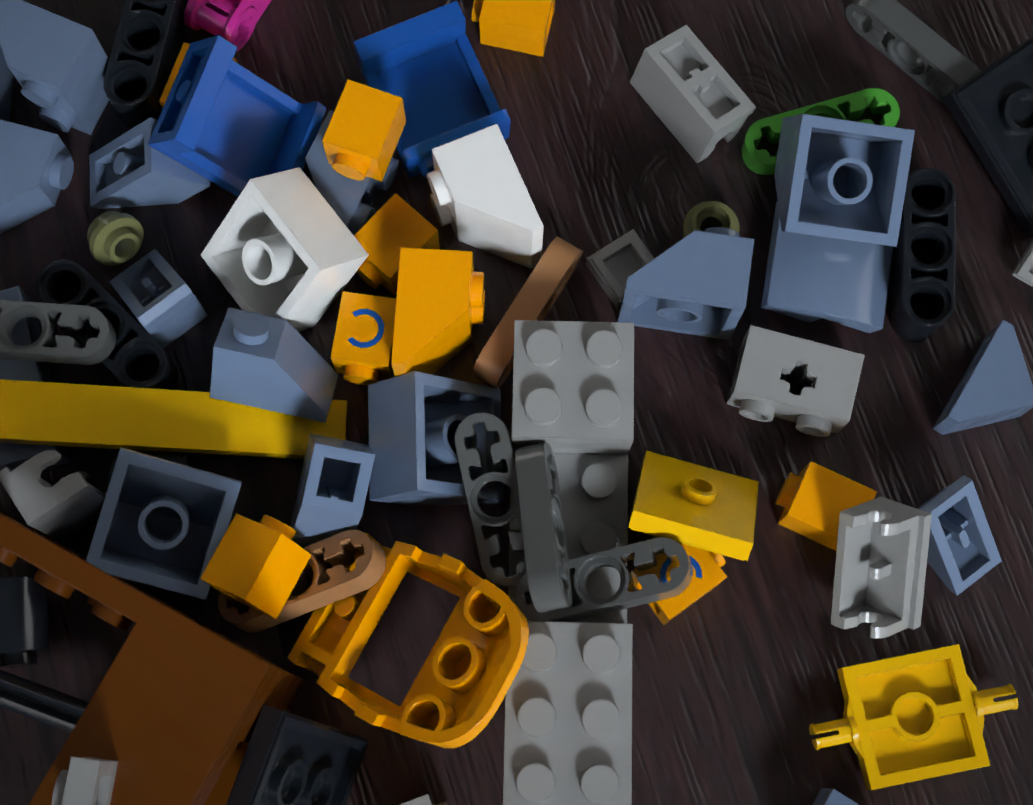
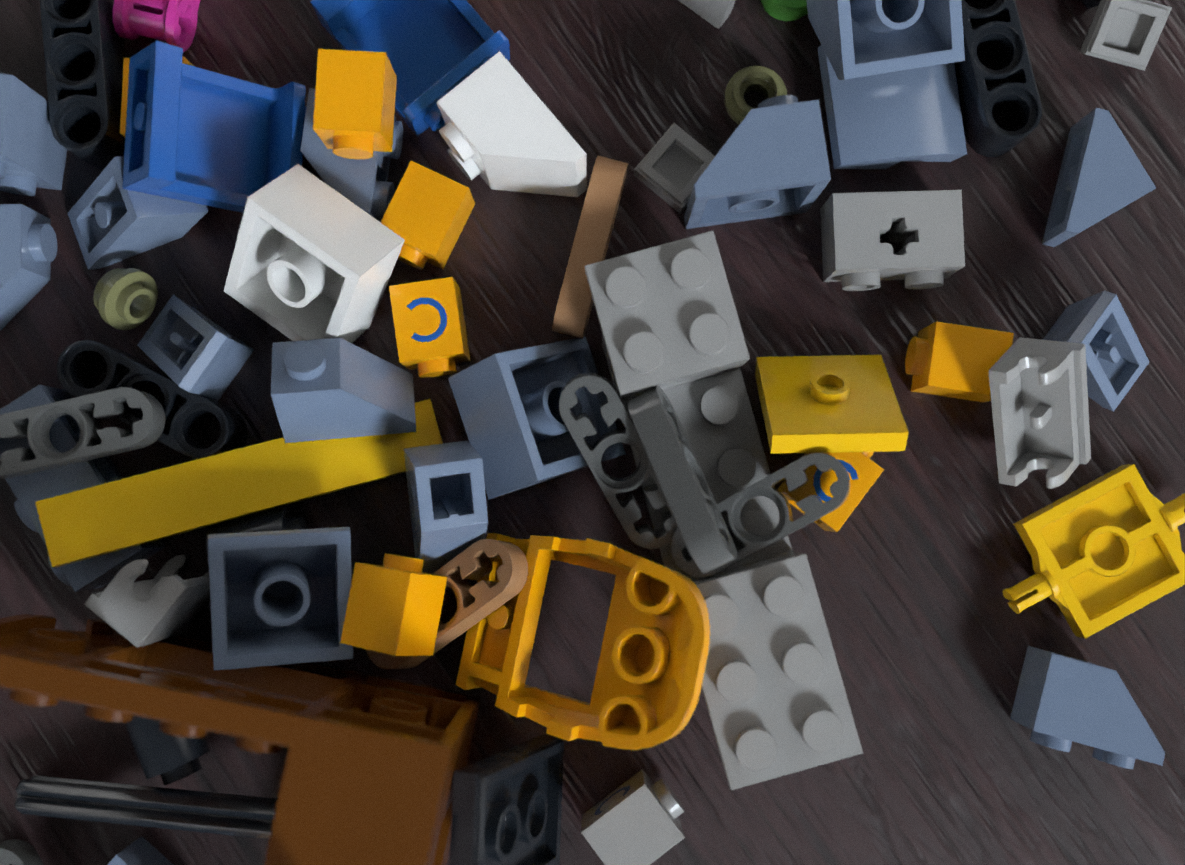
camera: 15 degrees left, 10 degrees up
(435, 308) = (492, 276): light orange slope -> none

